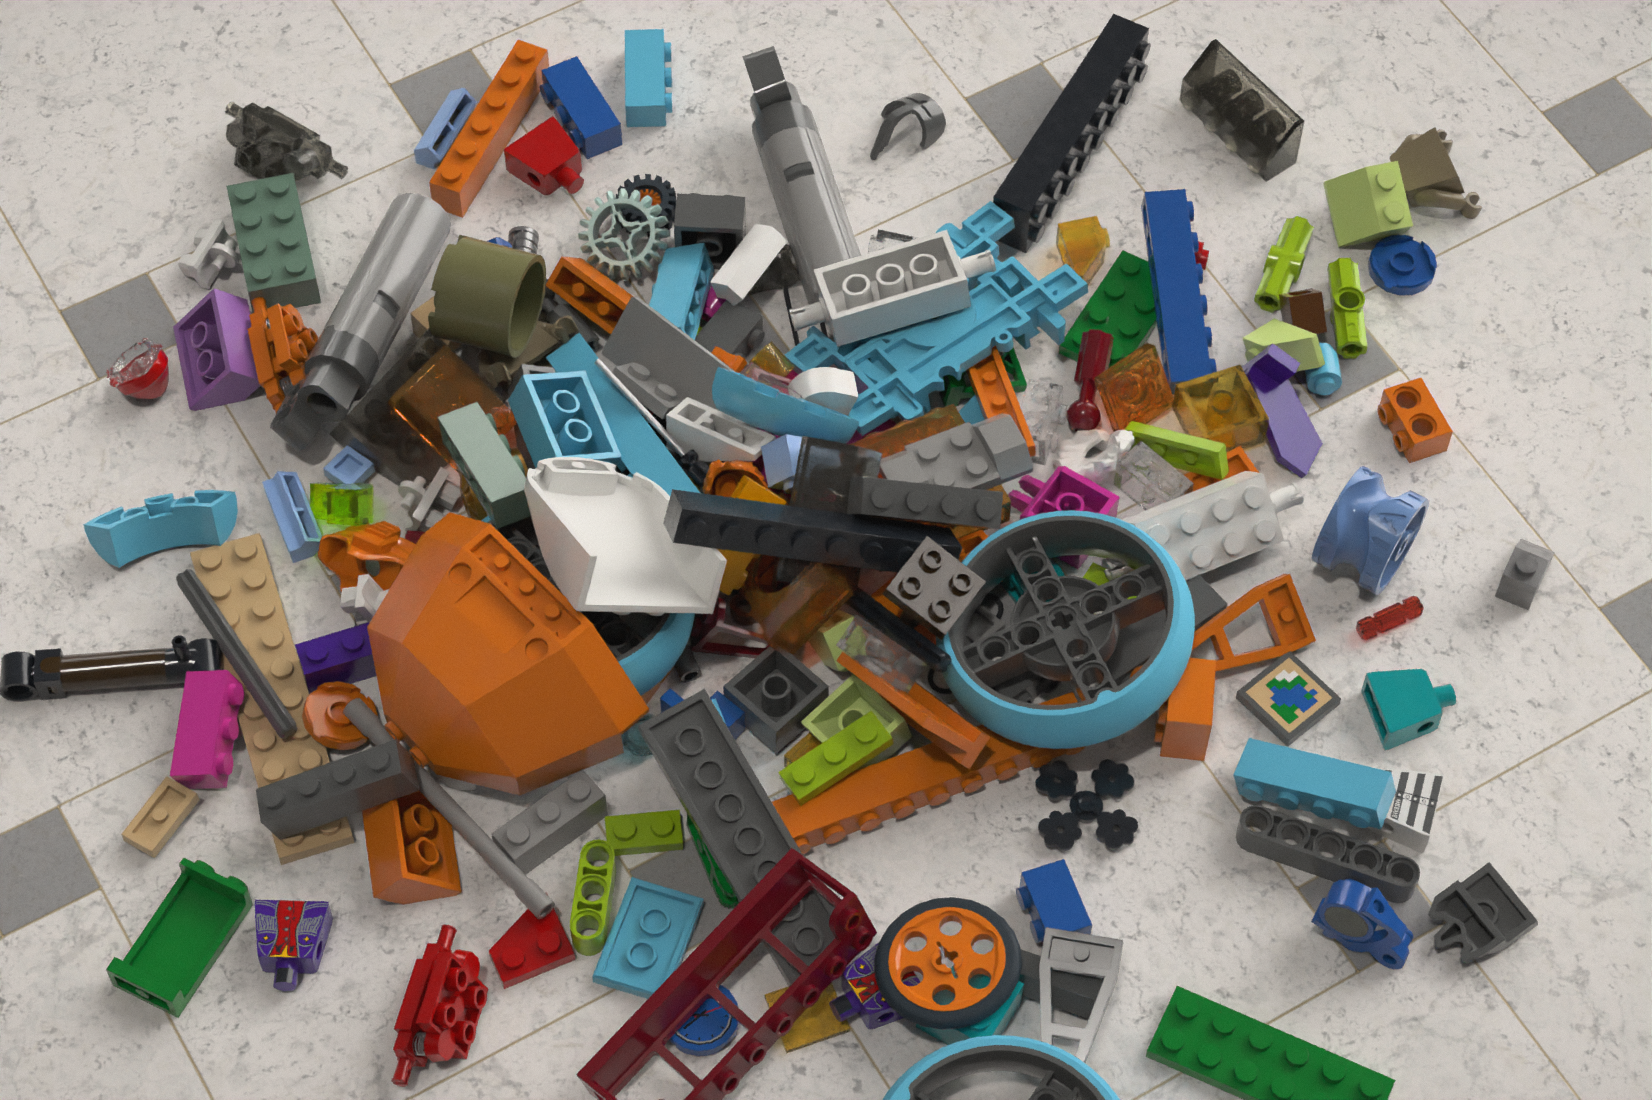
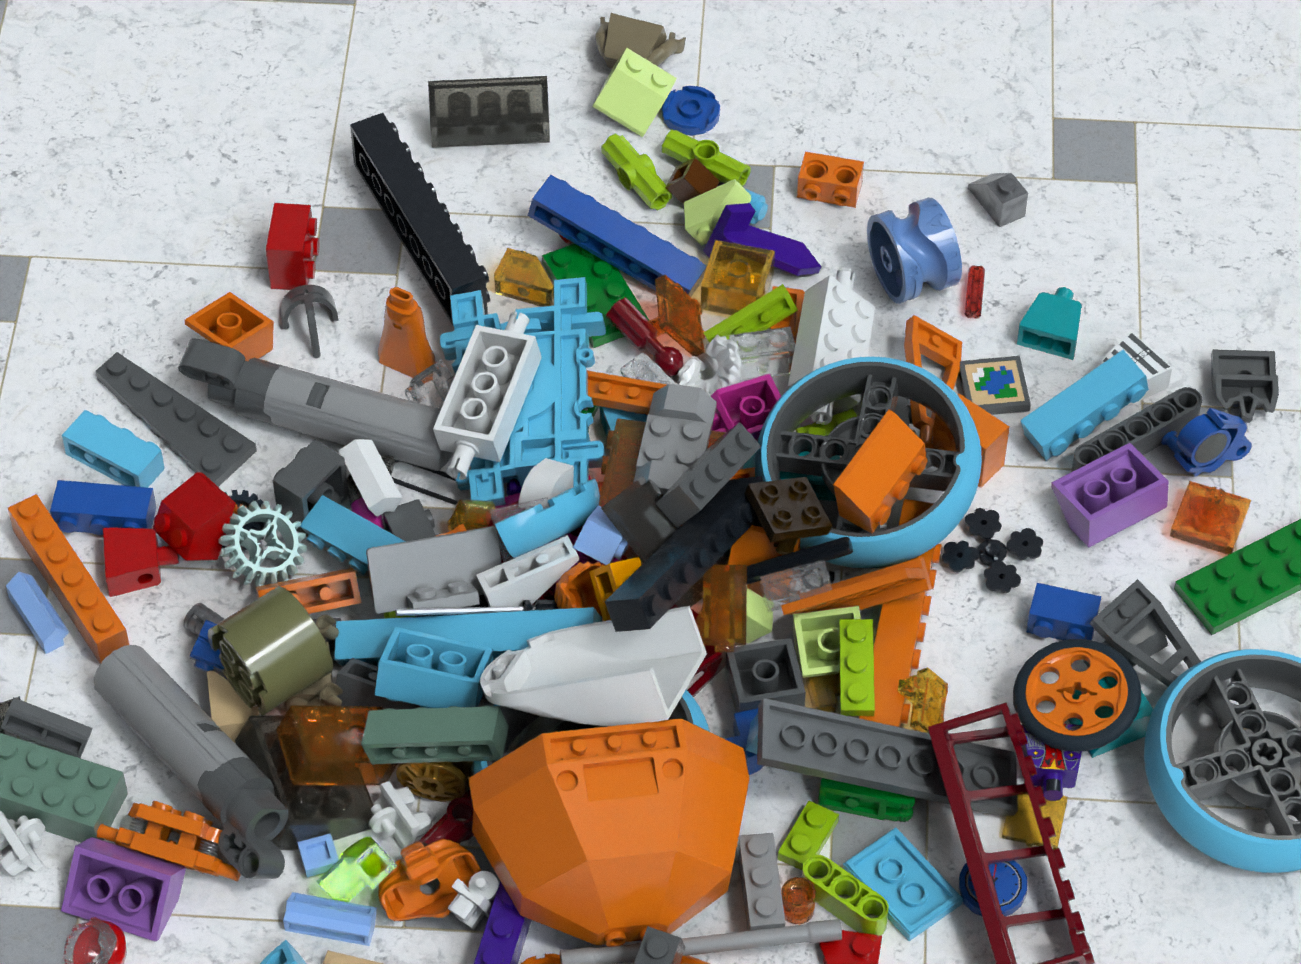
camera: 55 degrees left, 5 degrees down
(328, 204) = (46, 728): none -> dark grey piece
(560, 852) = (798, 892): none -> clear orange wheel
(604, 167) = (194, 518): none -> red slope
(715, 118) = (188, 429): none -> dark grey wing
(830, 75) = (234, 325): none -> orange slope
(858, 843) = (928, 697): none -> clear yellow hinge
(924, 202) = (403, 336): none -> orange piece
(958, 61) = (291, 246): none -> red brick
(1023, 632) = (880, 473): none -> orange slope
(1227, 867) = (1110, 494): none -> medium lavender slope
(1281, 976) = (1210, 518): none -> clear orange plate

